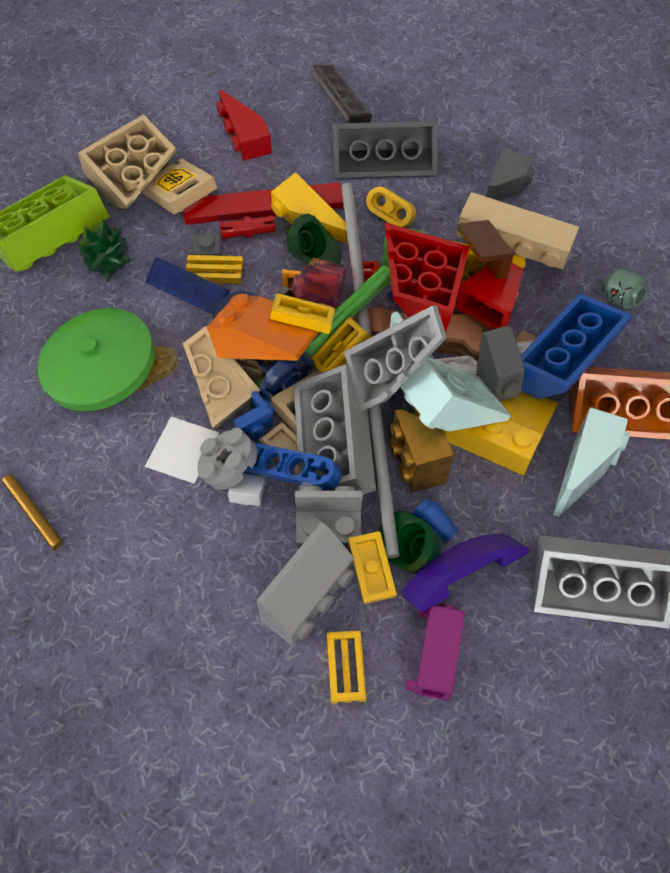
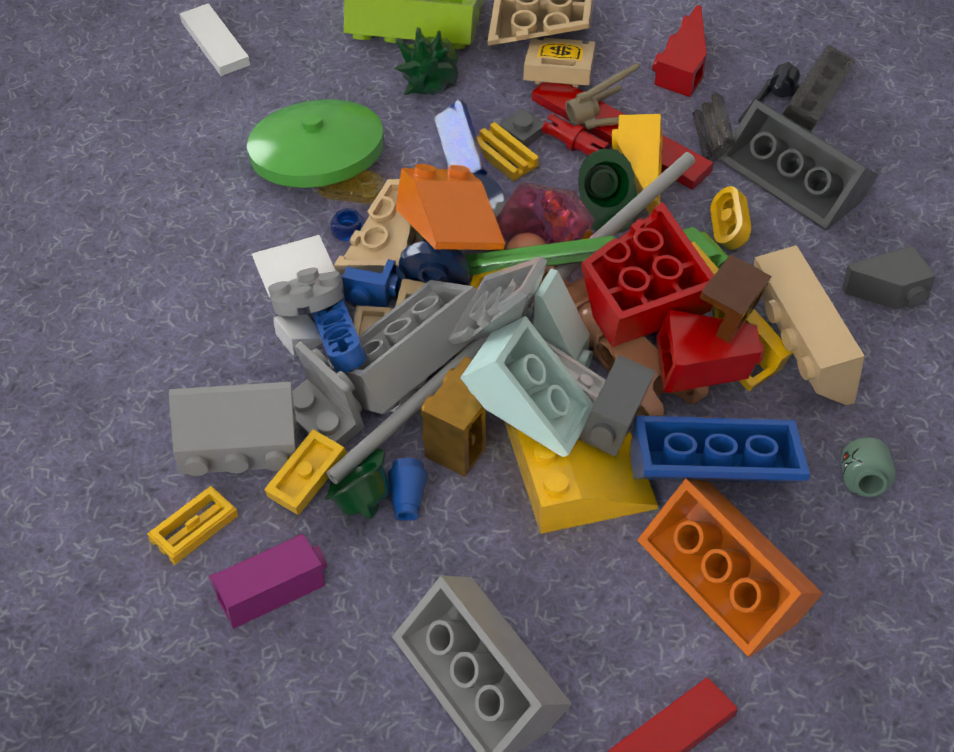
camera: 50 degrees right, 10 degrees down
(32, 512) = (133, 215): pearl gold bar -> none
(185, 387) = (345, 223): none -> clear blue plate
(235, 202) = (585, 105): none -> dark tan plant
(301, 142) = (709, 131): none -> clear smoke tile
(302, 313) = (490, 220): yellow tile -> none
(316, 106) = (782, 84): none -> black plant
(432, 581) = (426, 554): dark purple slope -> none
(594, 449) = (595, 559): light aqua slope -> none

